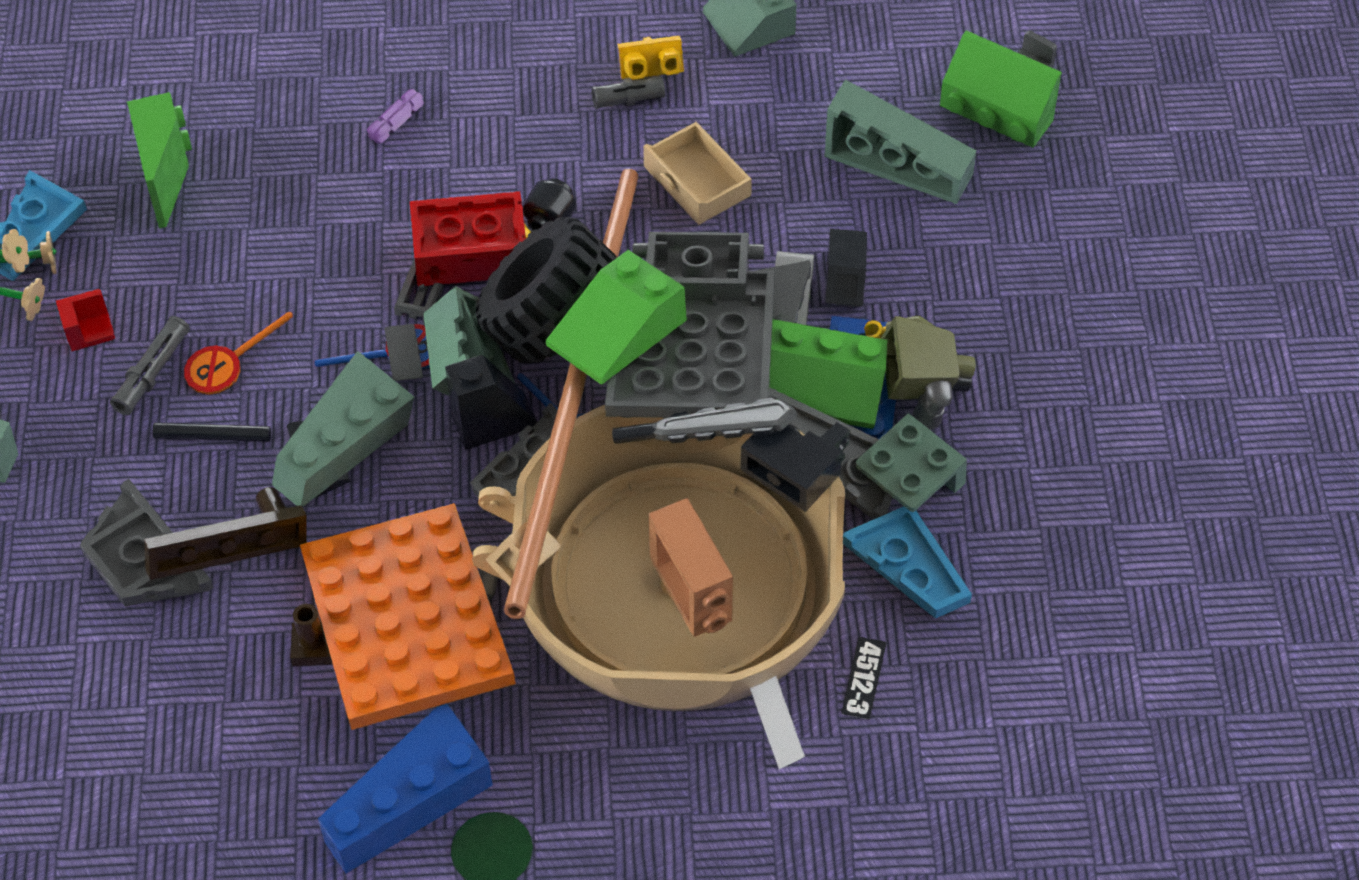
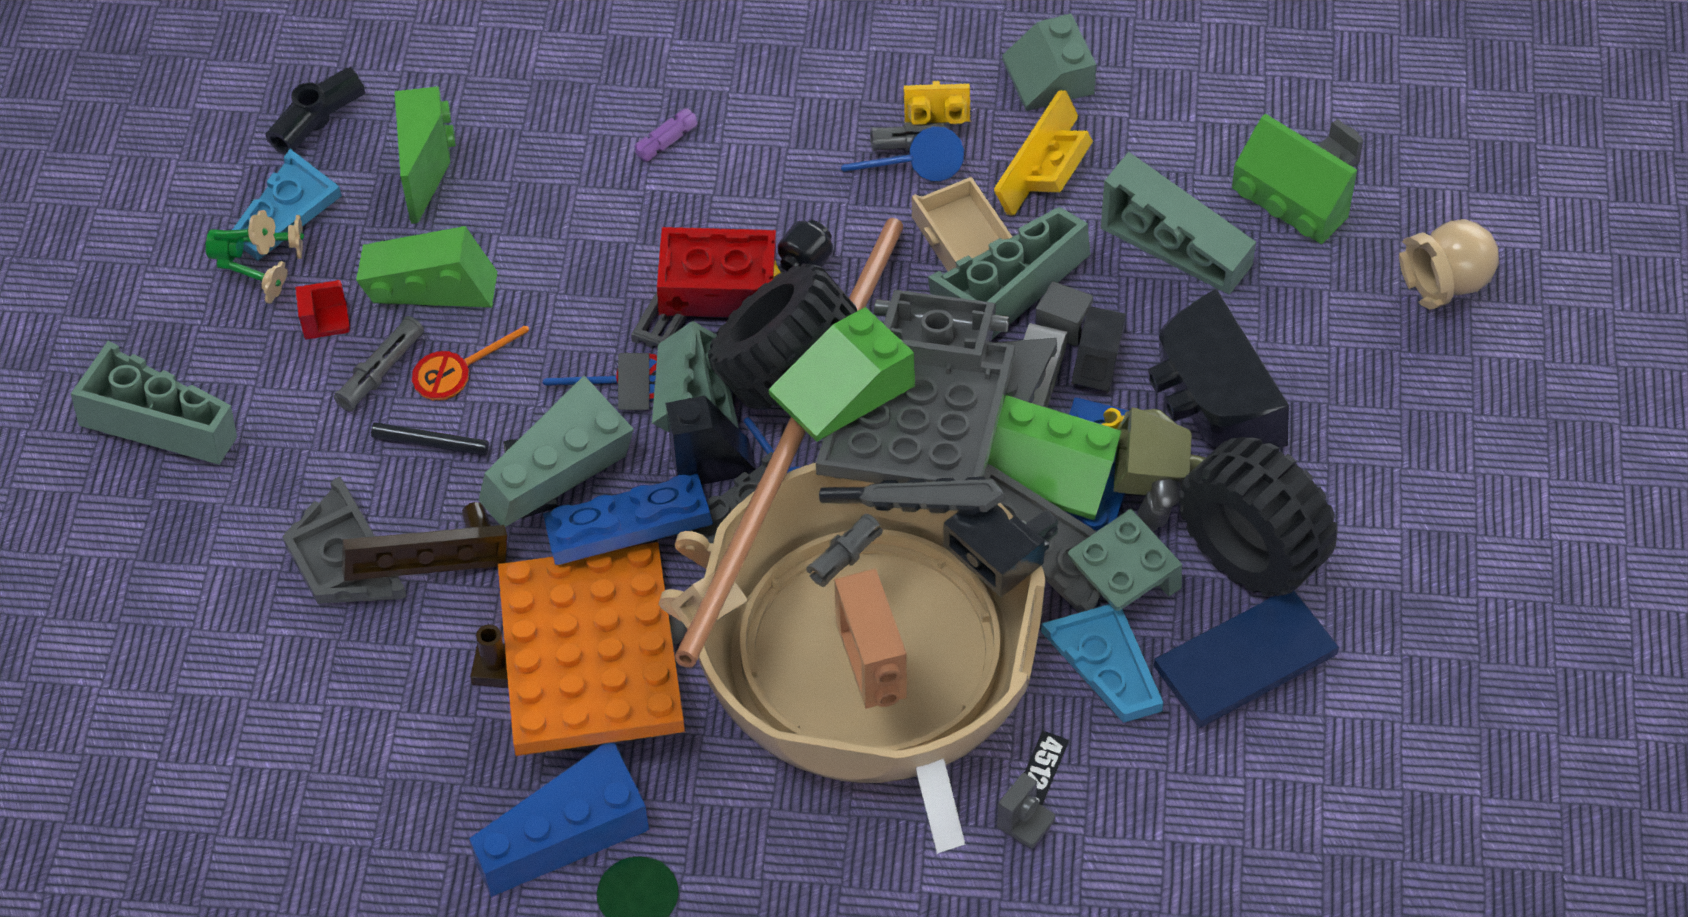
camera: 10 degrees right, 0 degrees up
(45, 128) = (312, 107): none -> black piece
(185, 269) = (428, 270): none -> bright green wedge
(421, 484) = (627, 518): none -> blue piece
(646, 485) = (844, 550): none -> dark grey pin
(656, 105) = (933, 155): none -> blue piece
(760, 198) = (1019, 268): none -> sand green wedge
(762, 96) = (1045, 157): none -> yellow bracket
(807, 235) = (1064, 310): none -> dark grey panel
(857, 720) = (1022, 814): none -> dark grey bracket
(968, 281) = (1218, 376): none -> black hips
(1033, 404) = (1258, 516): none -> black tyre
(1040, 540) = (1245, 657): none -> dark blue tile
(1157, 148) = (1449, 262): none -> tan tile

